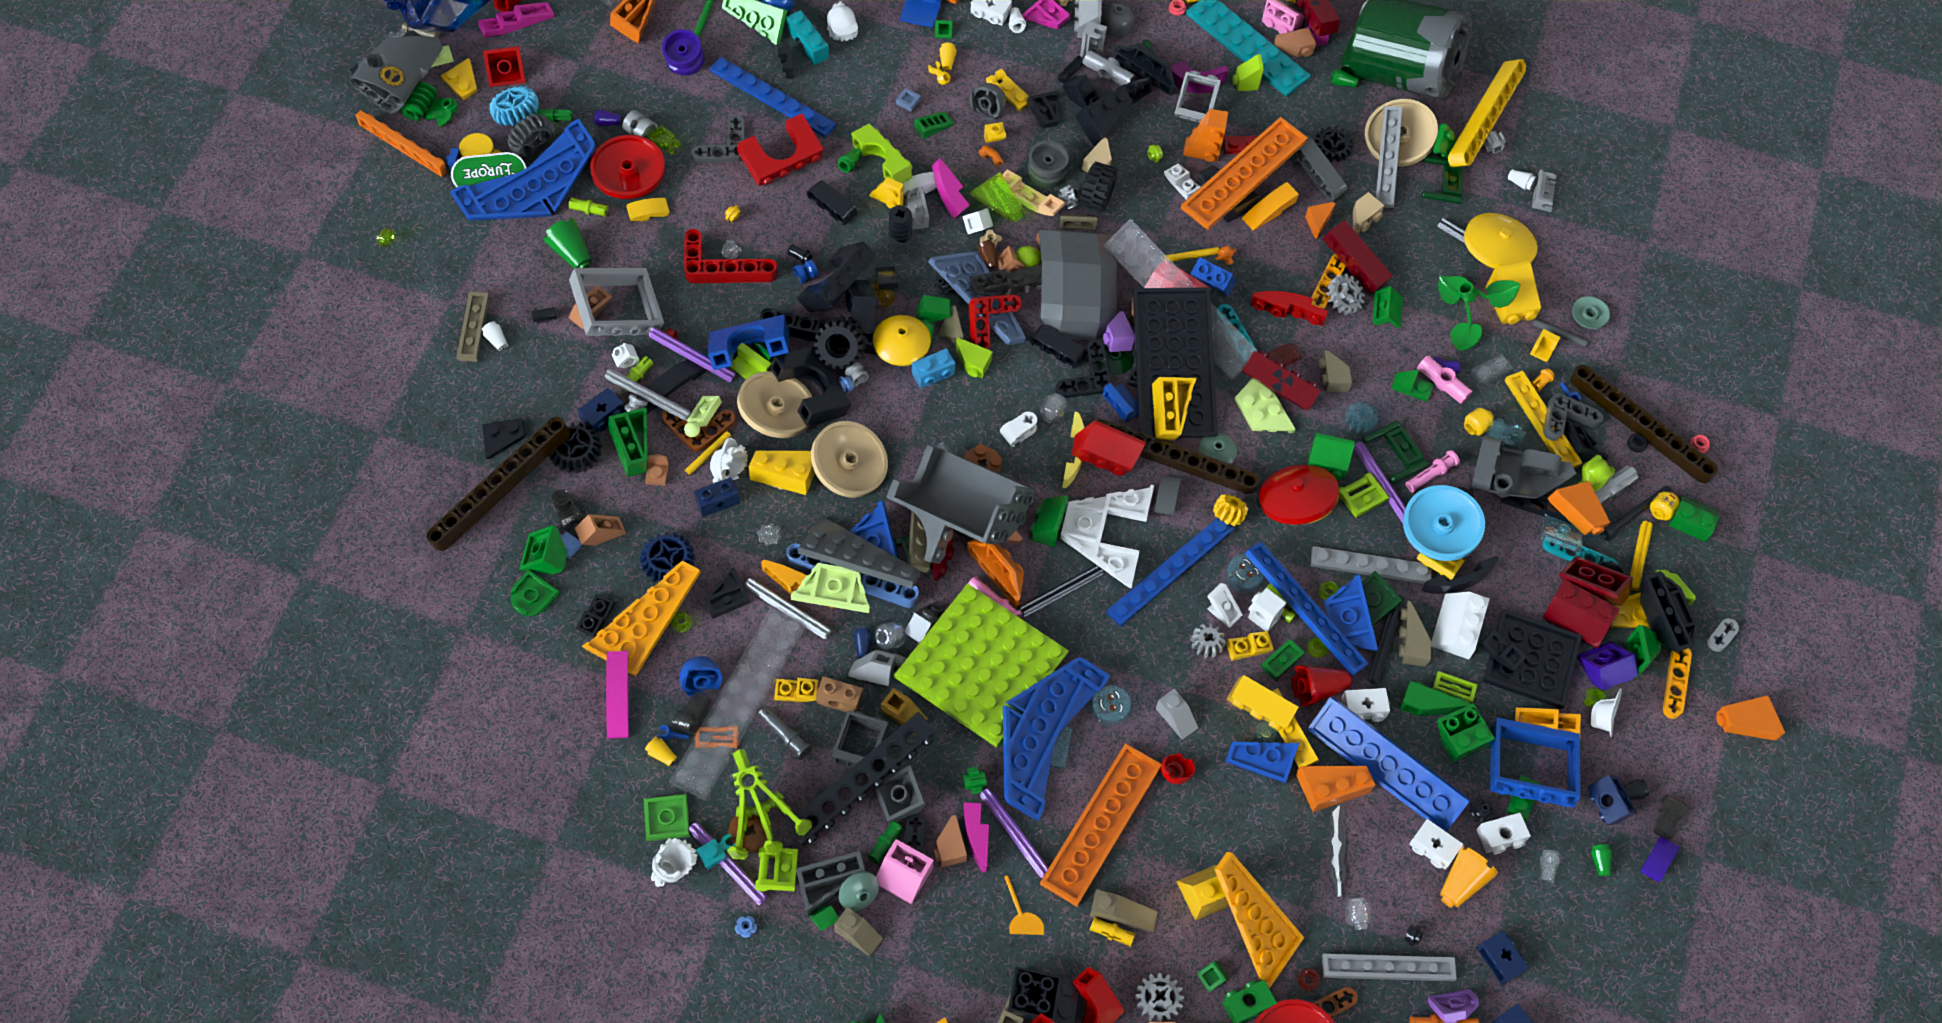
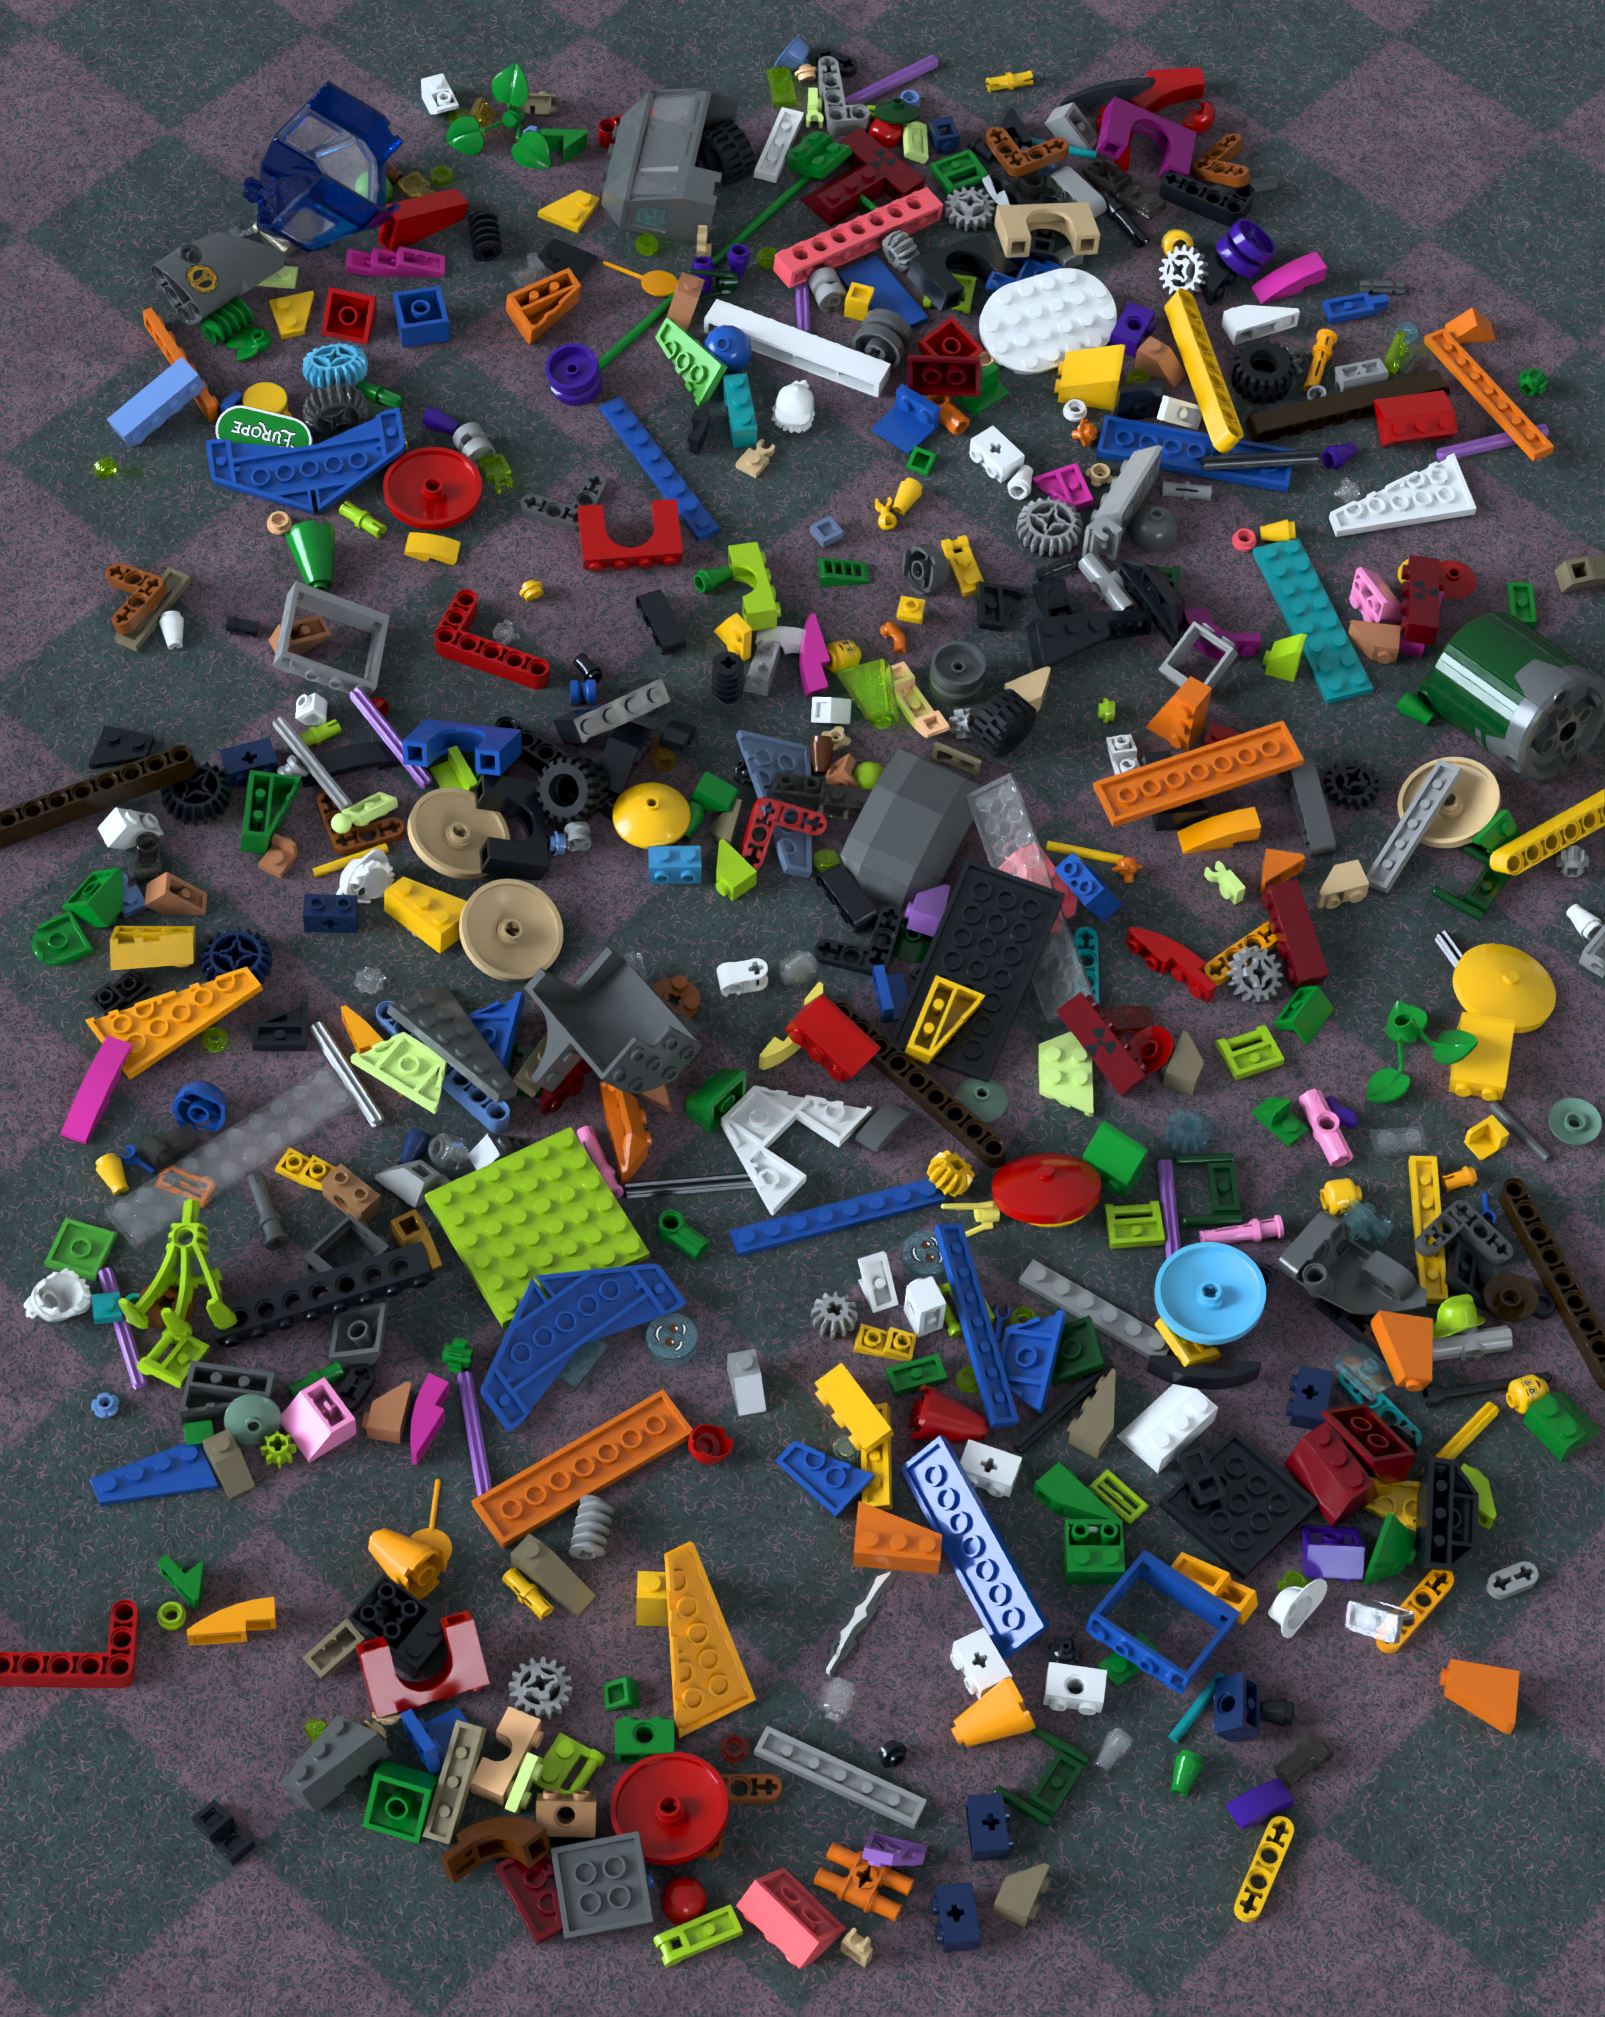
camera: 25 degrees right, 5 degrees down
(400, 177) = (156, 403): none -> medium blue brick
(460, 318) = (148, 590): none -> dark orange beam
(531, 231) = (279, 523): none -> light nougat plate
(539, 492) = (124, 826): none -> white slope
(555, 49) = (421, 316): none -> blue brick
(604, 572) = (152, 946): none -> yellow wedge
(816, 957) = (162, 1474): none -> blue wing
(833, 68) = (756, 460): none -> tan plate
(884, 910) = (281, 1456): none -> lime gear
(968, 179) = (843, 655): none -> yellow head
(1019, 946) = (408, 1561): none -> light orange cone
(1029, 325) = (825, 859): none -> clear neon green plate
(1043, 37) = (1061, 535): none -> light grey gear
(1079, 628) = (683, 1235): none -> green piece
(1131, 865) = (591, 1528): none -> light grey piece
(1263, 527) = (983, 1212): none -> light yellow plant
(1295, 239) = (1229, 884): none -> yellowish green plate
(1308, 363) = (1152, 1046): none -> red dish
(1316, 592) = (1000, 1320): none -> blue hand
(1373, 352) = (1253, 1058): none -> lime plate
(1526, 906) = (1054, 1784): none -> dark green plate
(1537, 566) = (1314, 1384): none -> dark blue brick
(1550, 997) = (1019, 1894): none -> dark tan slope
(1583, 808) = (1194, 1711): none -> teal bar
(1621, 439) = (1514, 1288): none -> dark brown dish
(1662, 699) = (1376, 1619): none -> clear panel
(1686, 903) = (1261, 1868): none -> yellow beam

